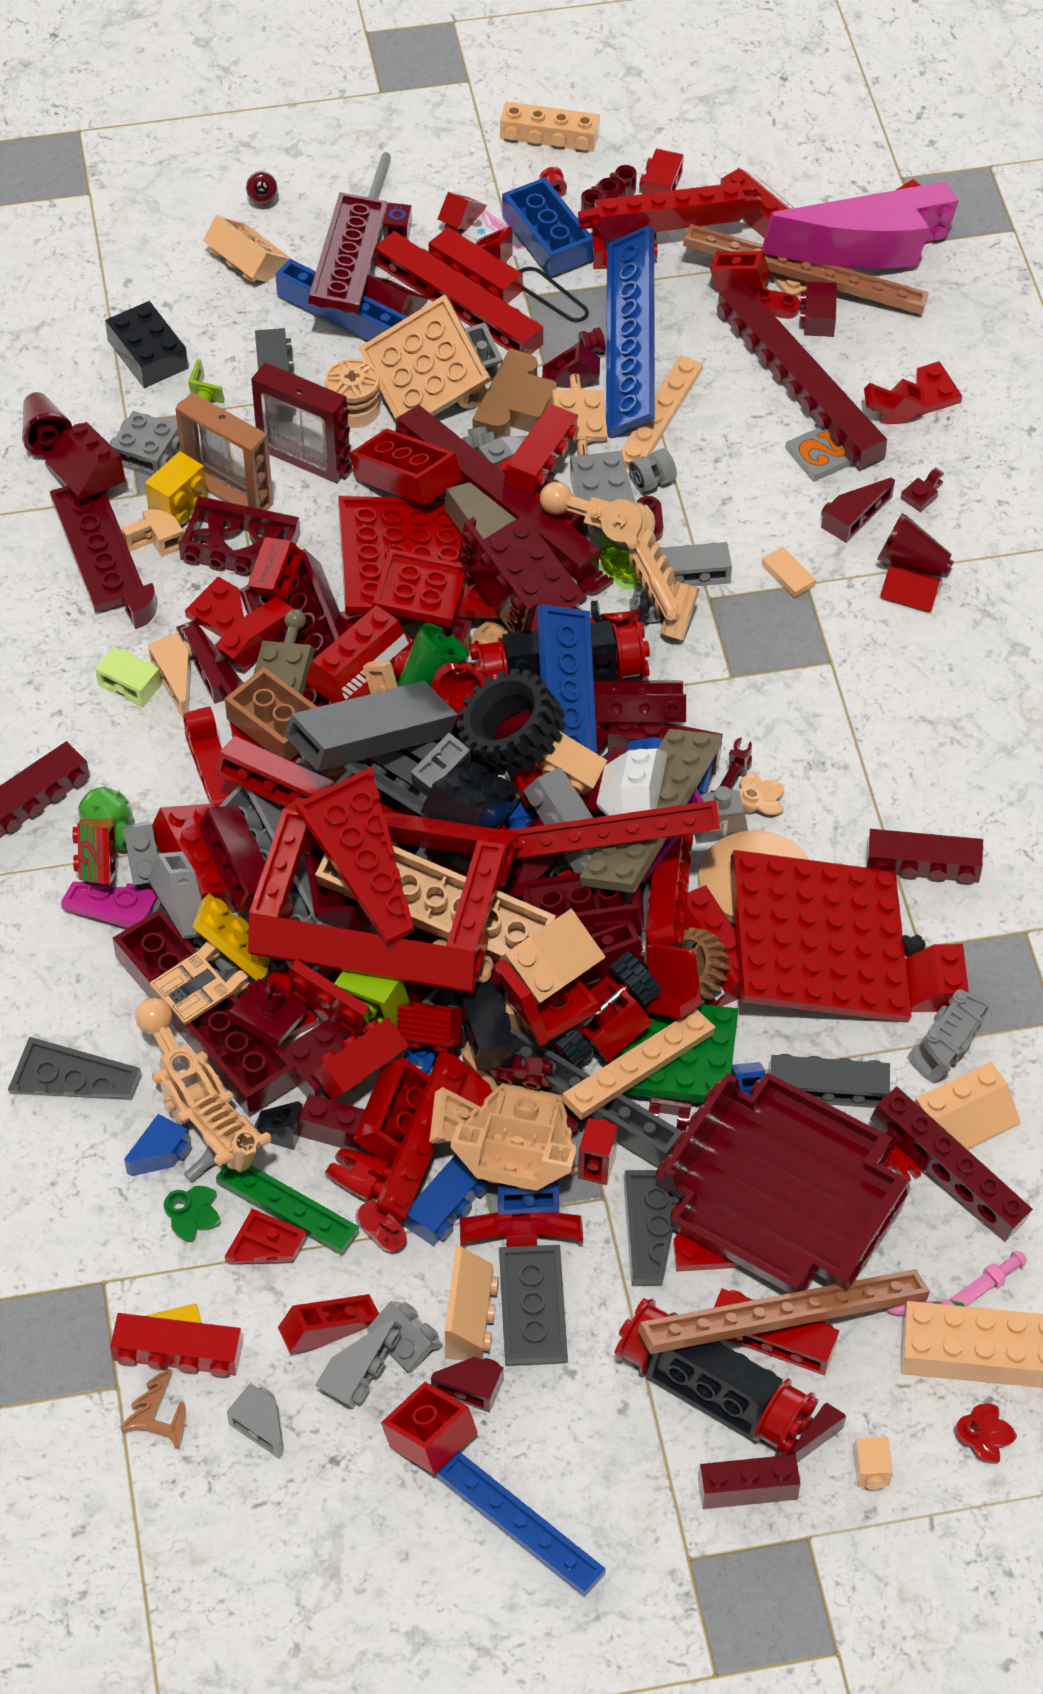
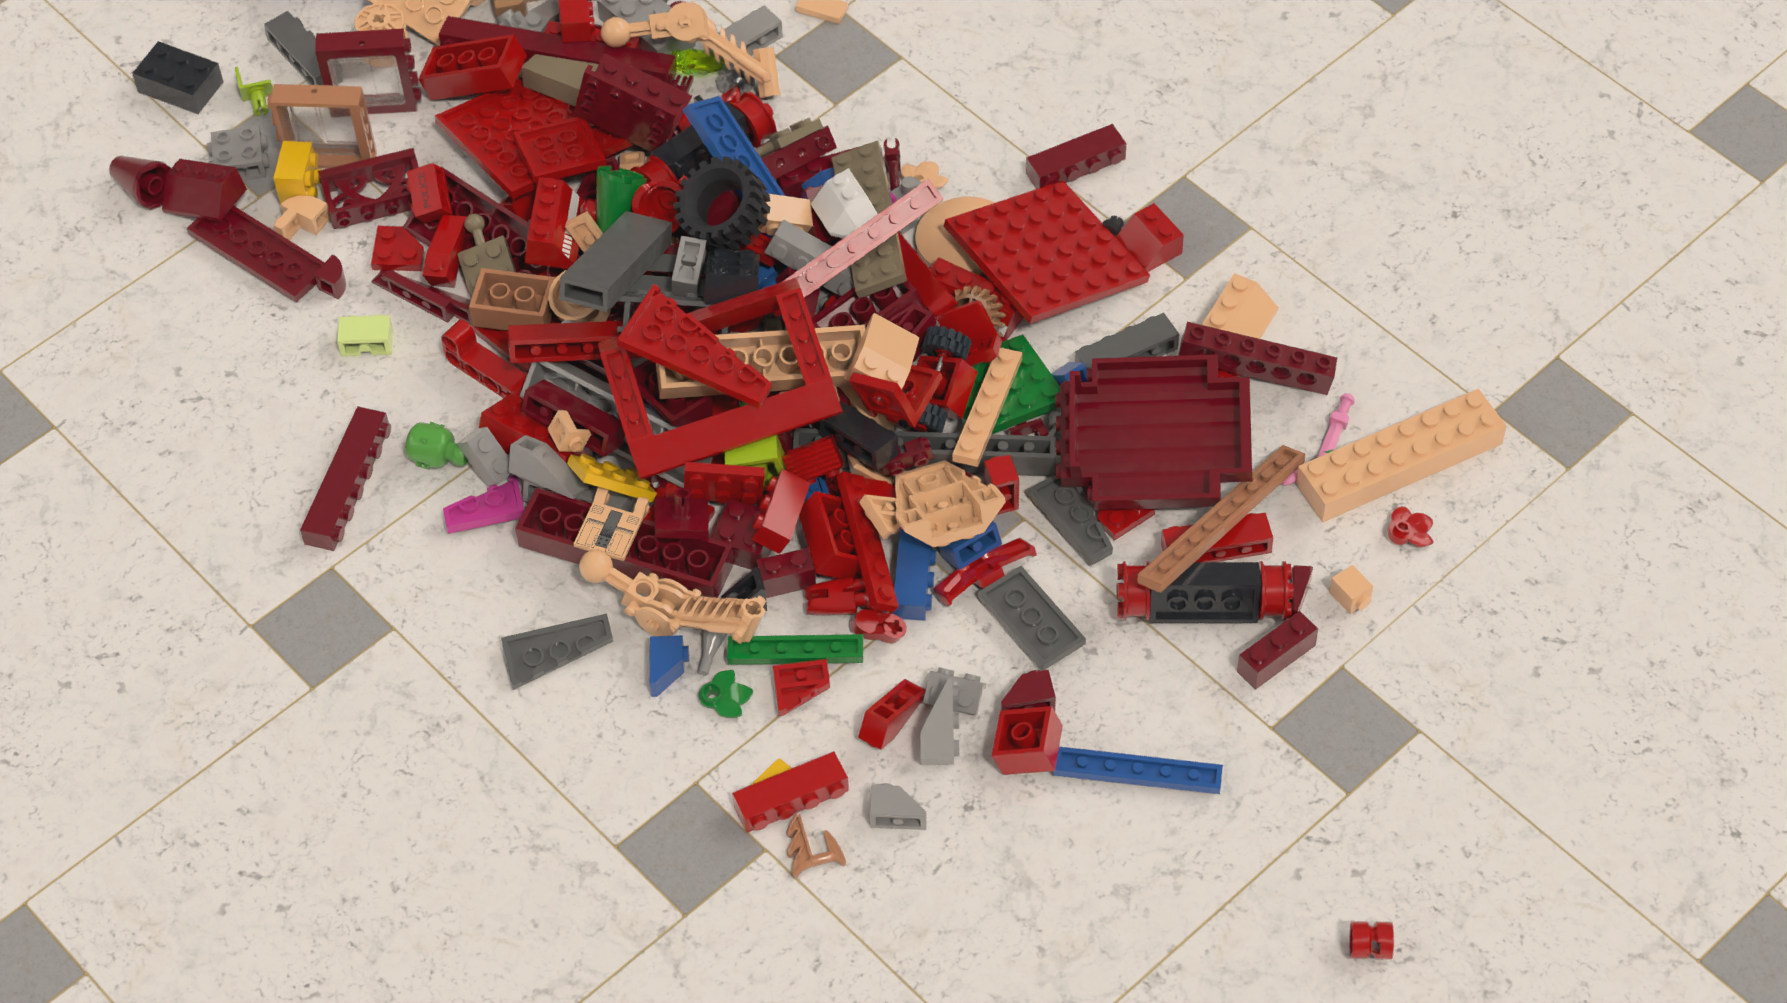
camera: 30 degrees left, 0 degrees up
(95, 850) = (449, 473): red slope -> none
(172, 659) = (403, 314): light nougat slope -> none
(213, 871) = (565, 433): none -> light nougat bracket
(469, 1306) = (989, 644): light nougat slope -> none
(637, 685) = (785, 137): none -> dark tan plate
(949, 1035) = (1188, 273): light grey piece -> none

